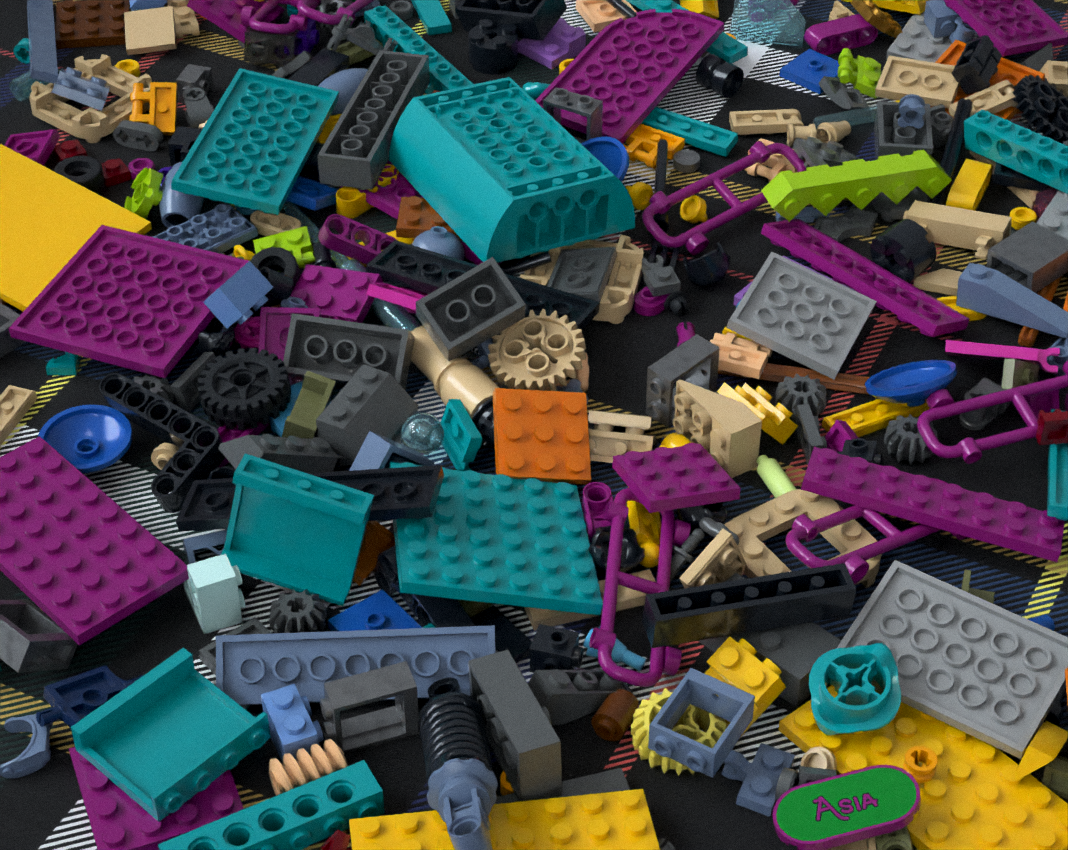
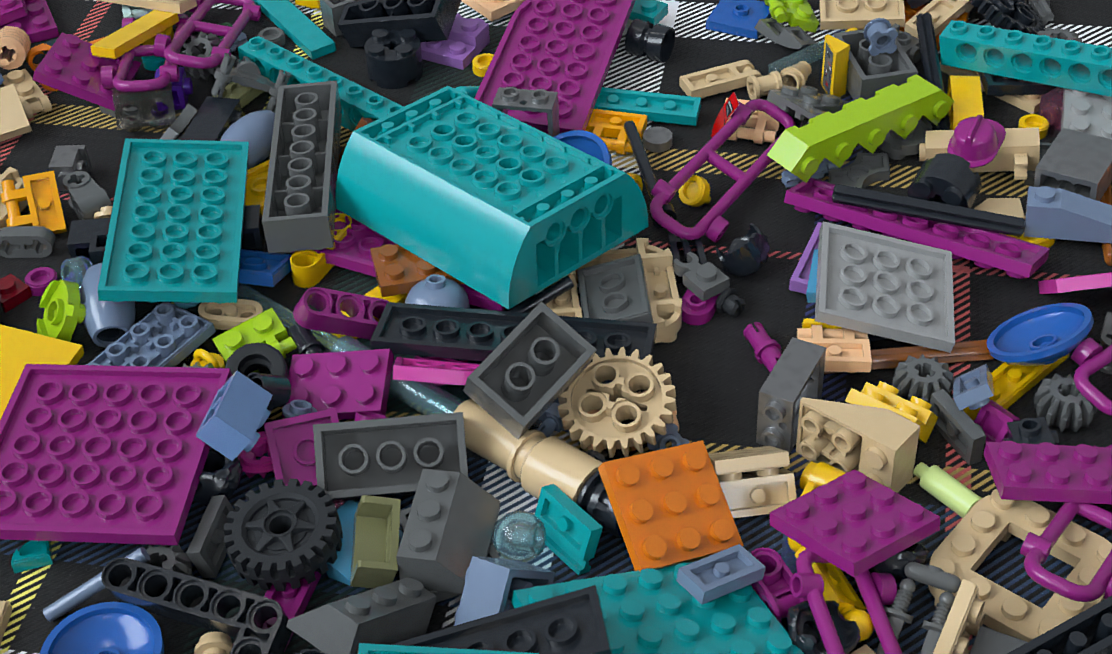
camera: 15 degrees left, 0 degrees up
(90, 395) = (85, 590): none -> sand blue bar
(165, 162) = (74, 269): none -> clear light blue tile
(554, 489) = (720, 573): none -> sand blue plate
(752, 143) = (725, 113): none -> red sticker
(832, 409) = (973, 388): none -> sand blue plate
(867, 131) = (835, 66): none -> yellow slope
(878, 265) = (928, 210): none -> black axle
(950, 216) = (977, 140): none -> magenta piece

